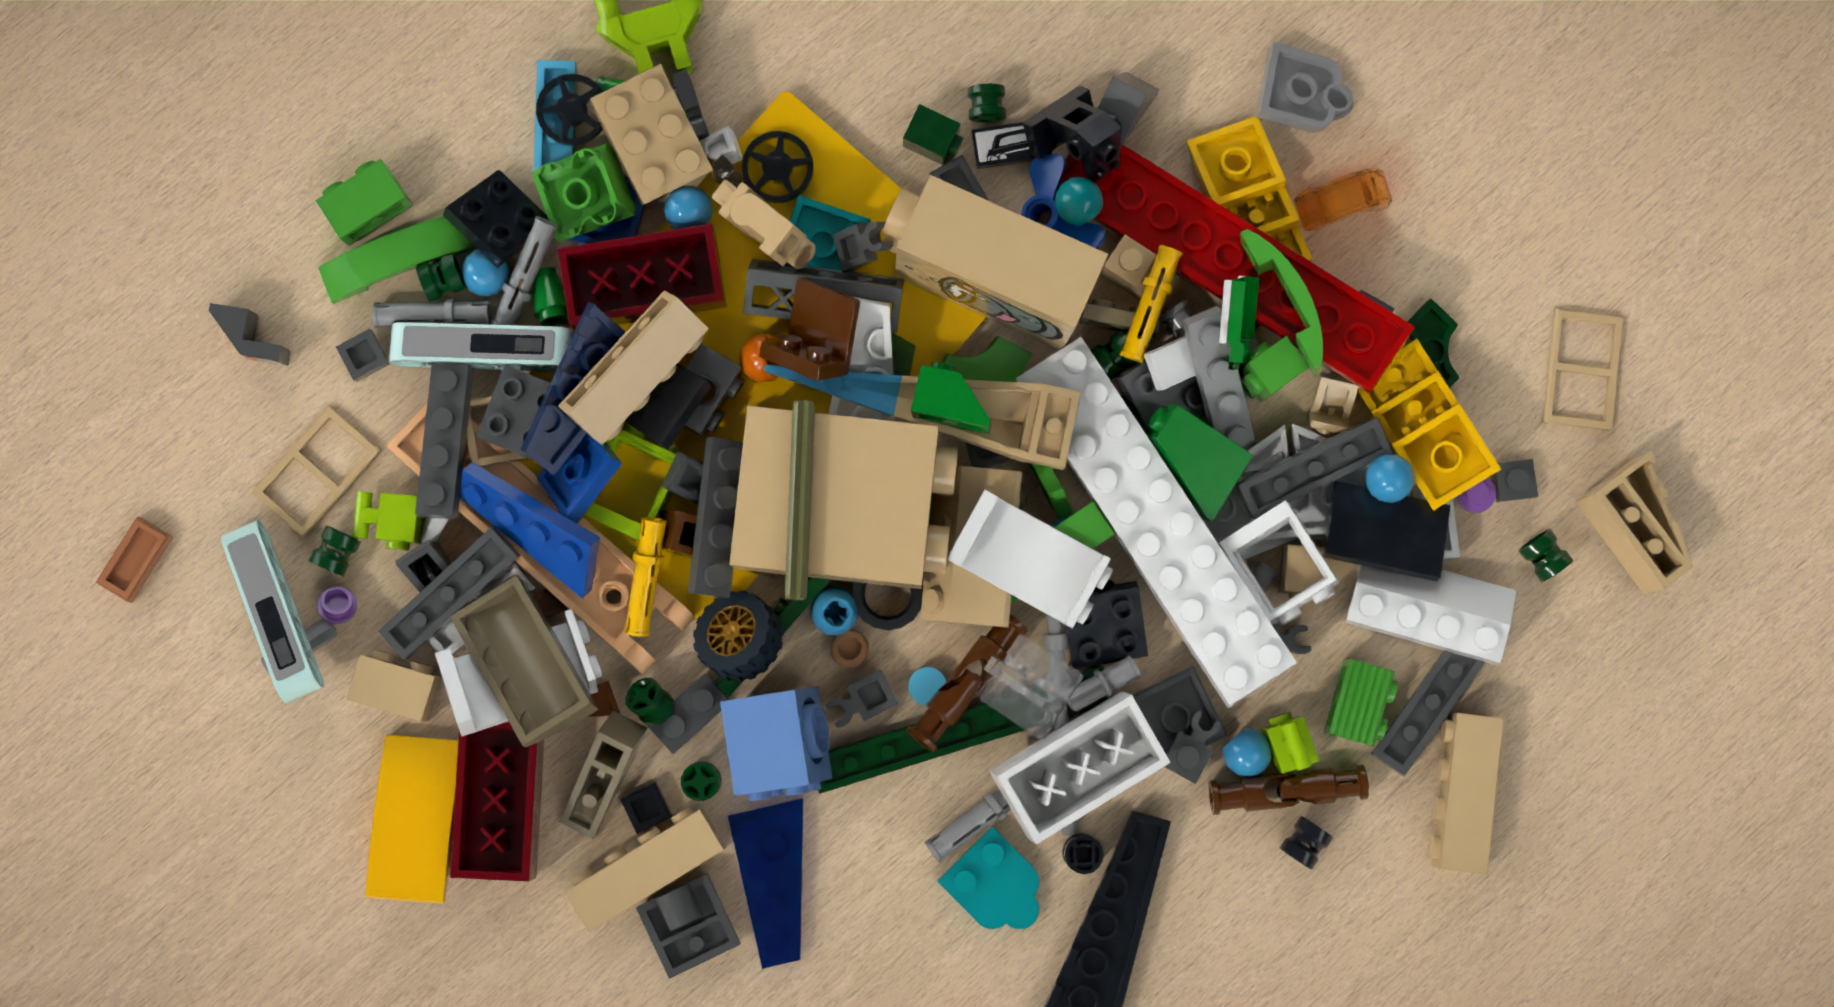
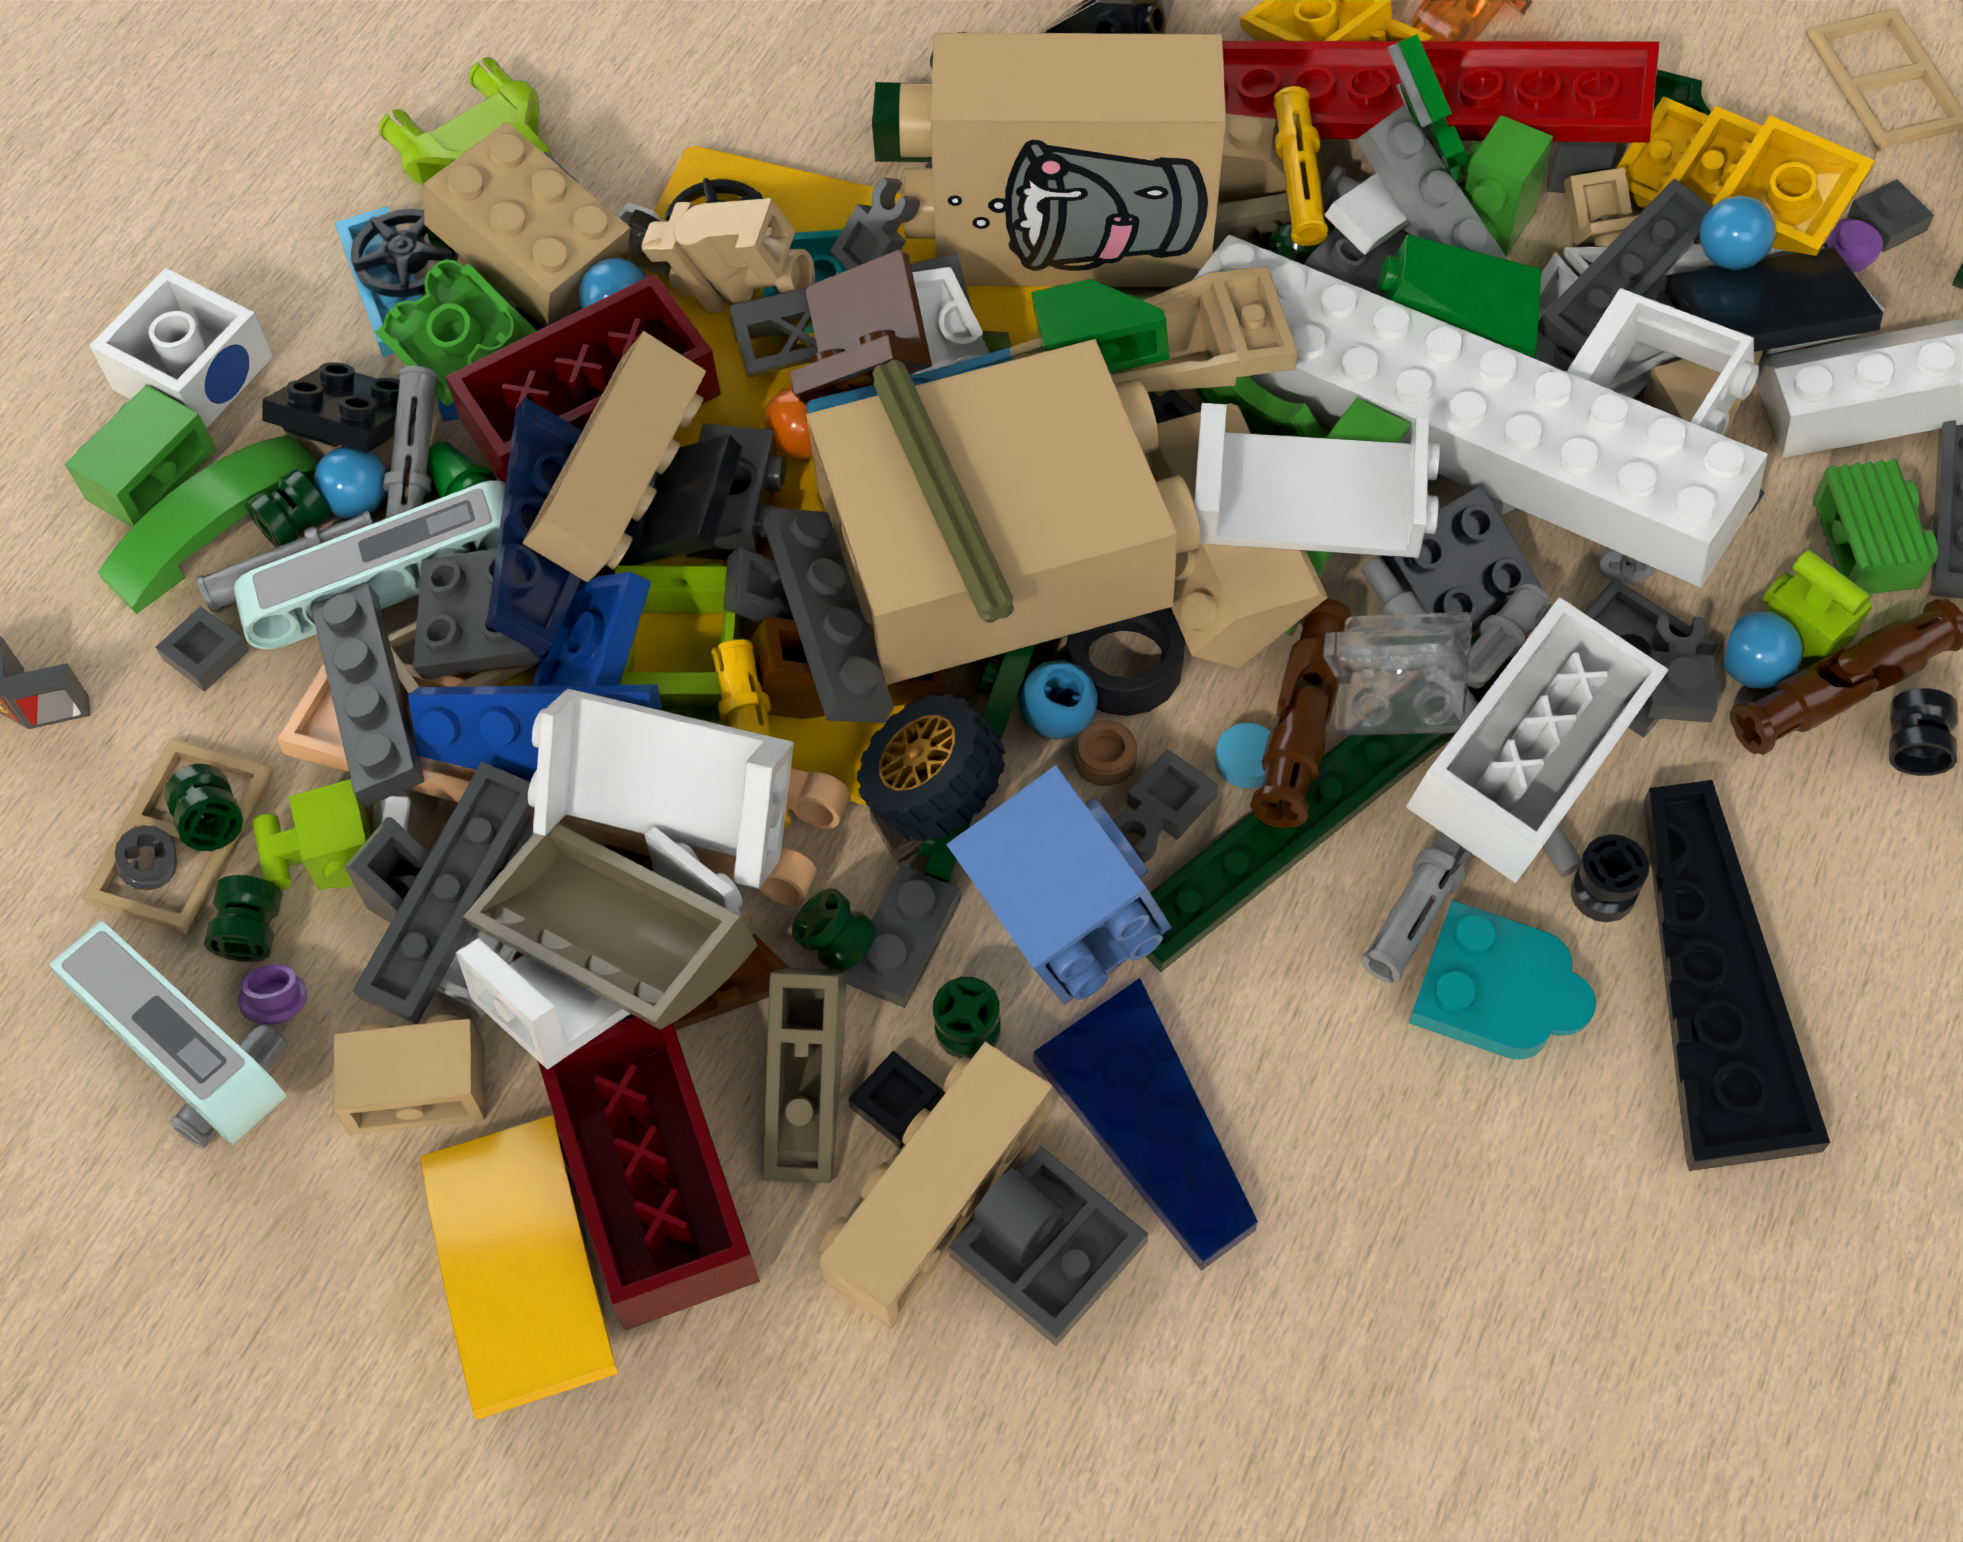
camera: 15 degrees left, 25 degrees down
(299, 495) = (129, 848): none -> dark grey bush
(332, 471) = (203, 807): none -> dark green wheel
(410, 131) = (183, 345): none -> white brick
(585, 591) = (664, 772): none -> white panel
(1267, 257) = (1486, 62): bright green slope -> none

